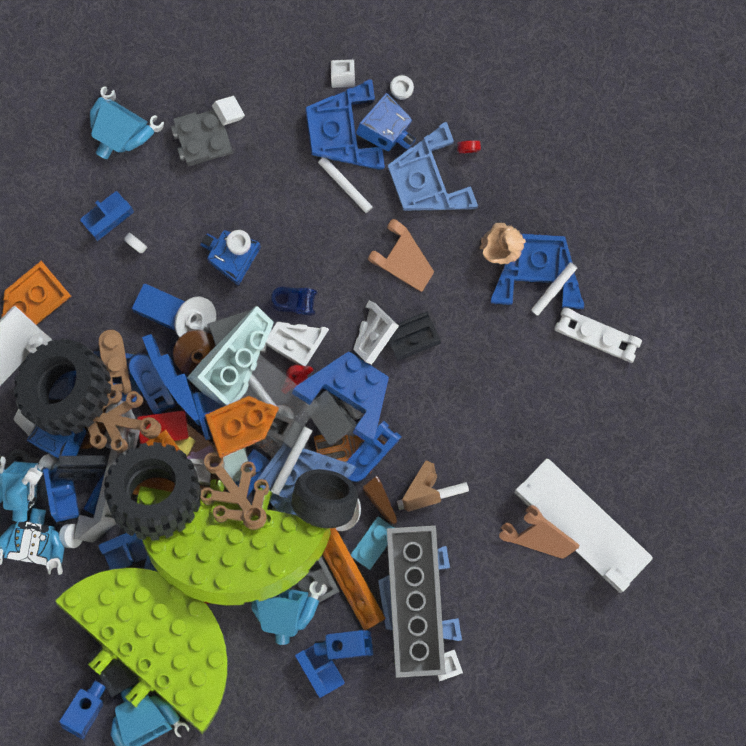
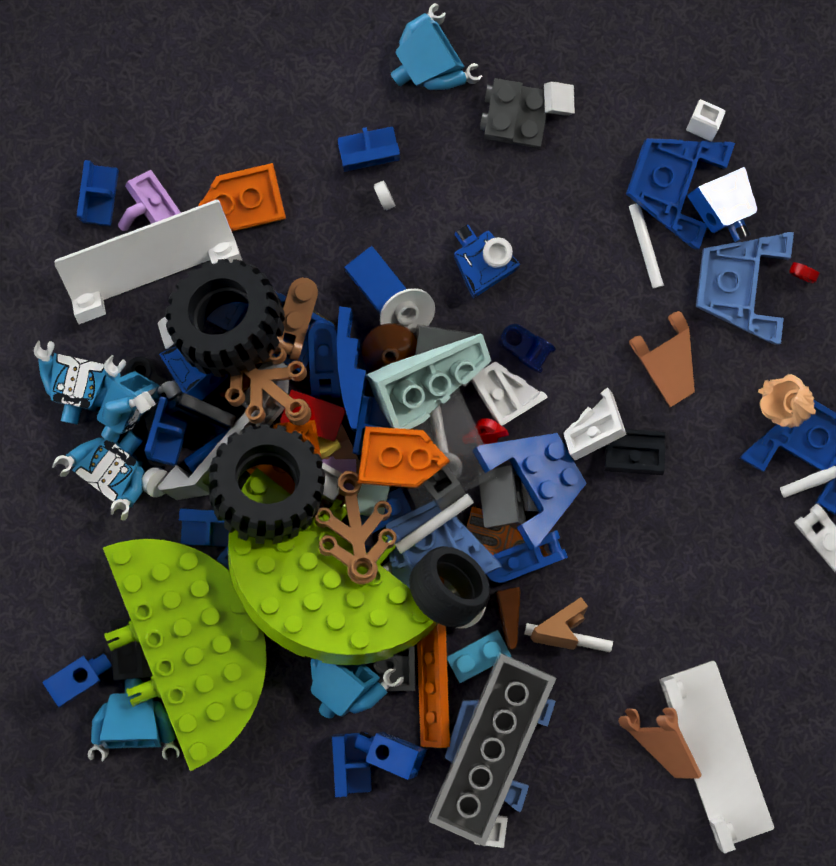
camera: 25 degrees right, 5 degrees up
(401, 87) = (763, 168): white tile -> none

